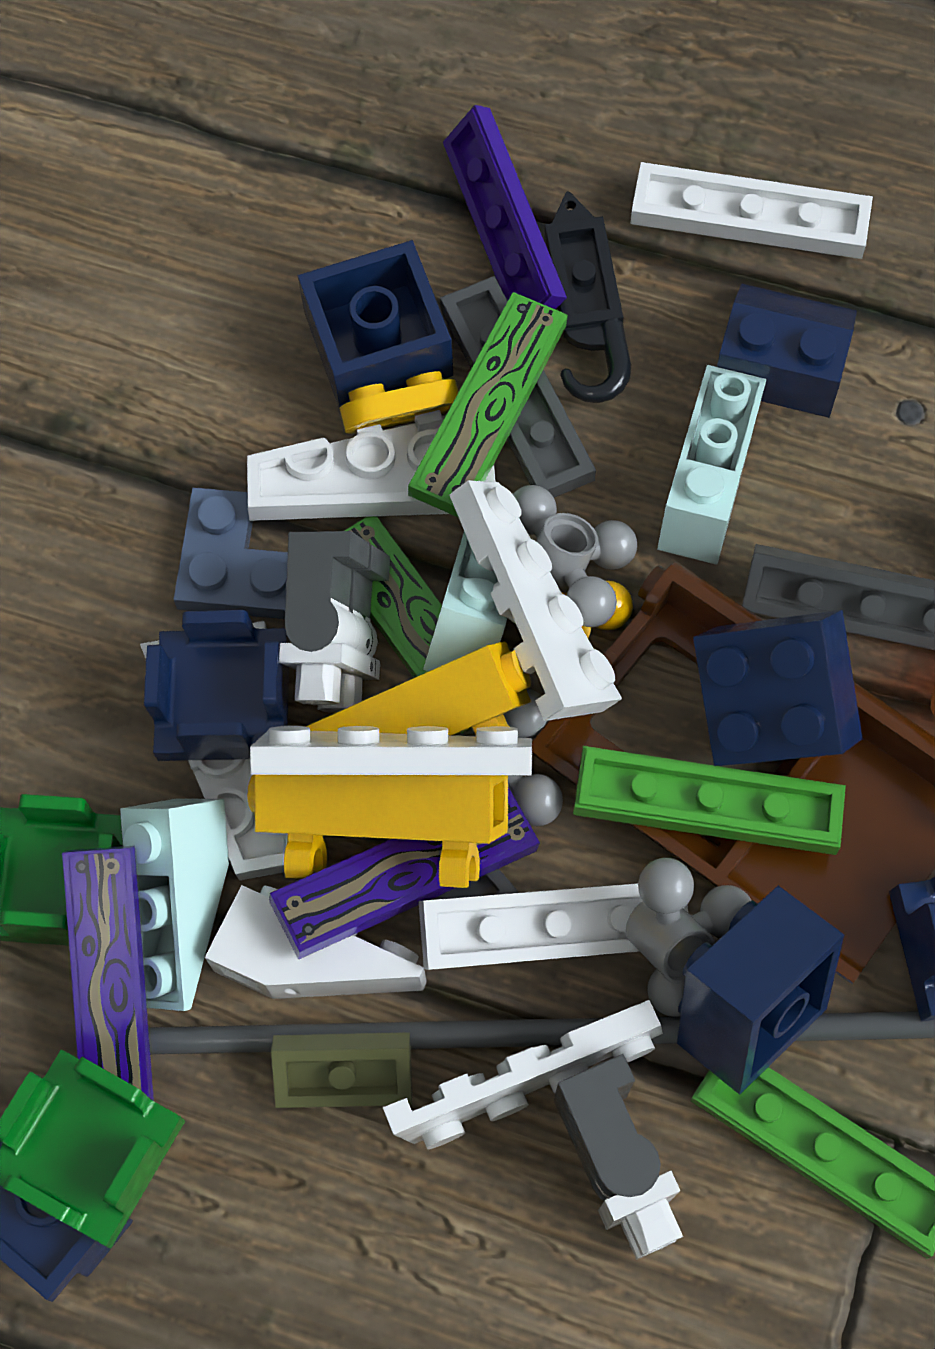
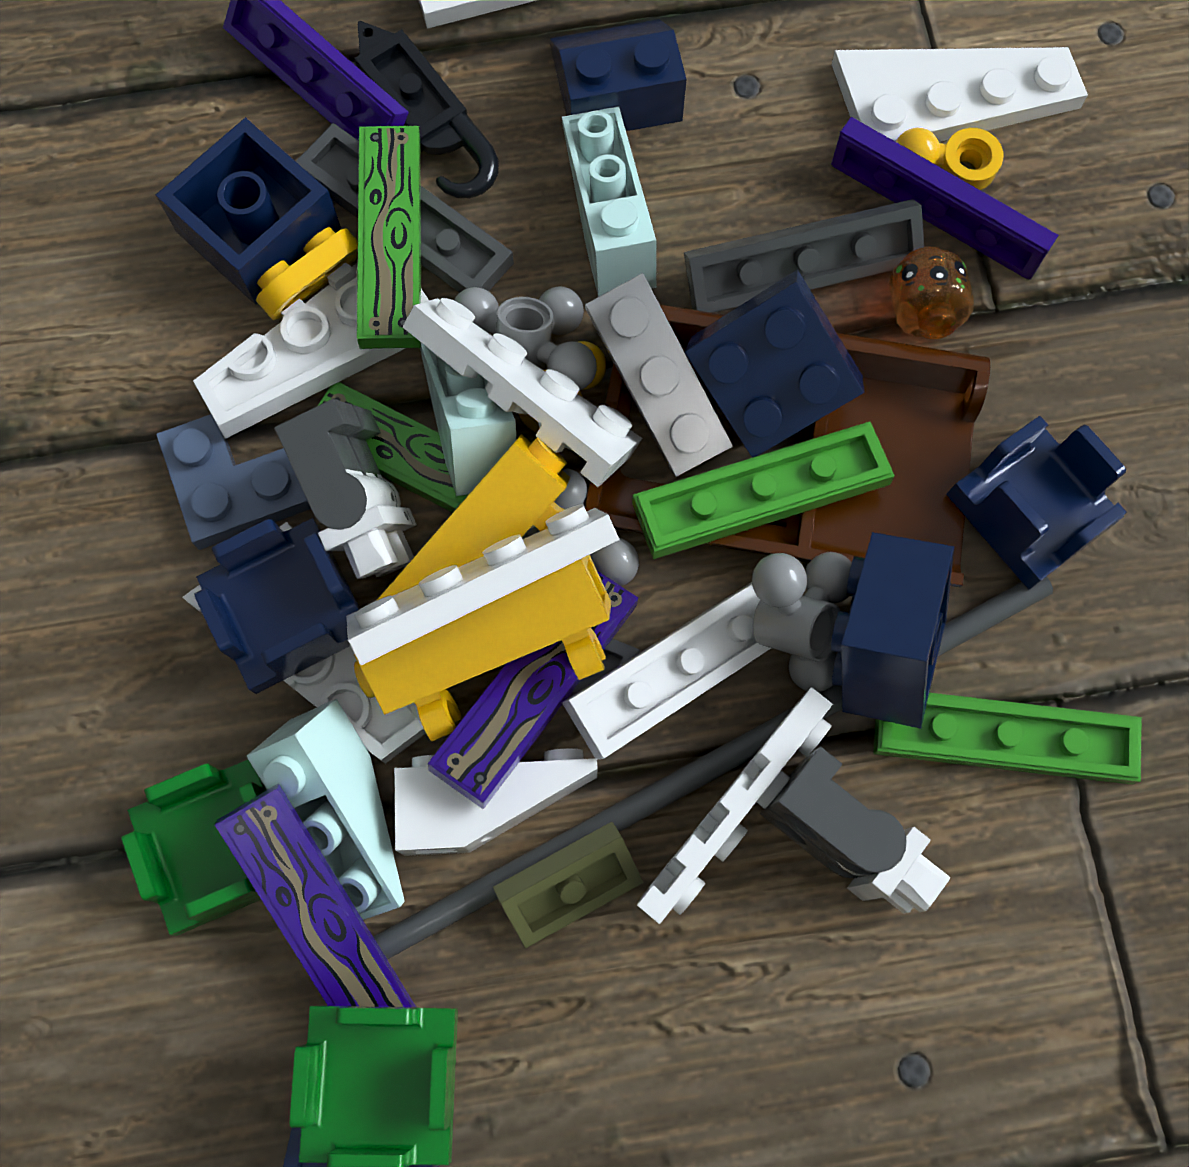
camera: 30 degrees left, 5 degrees up
(661, 647) = (658, 375): none -> light grey brick

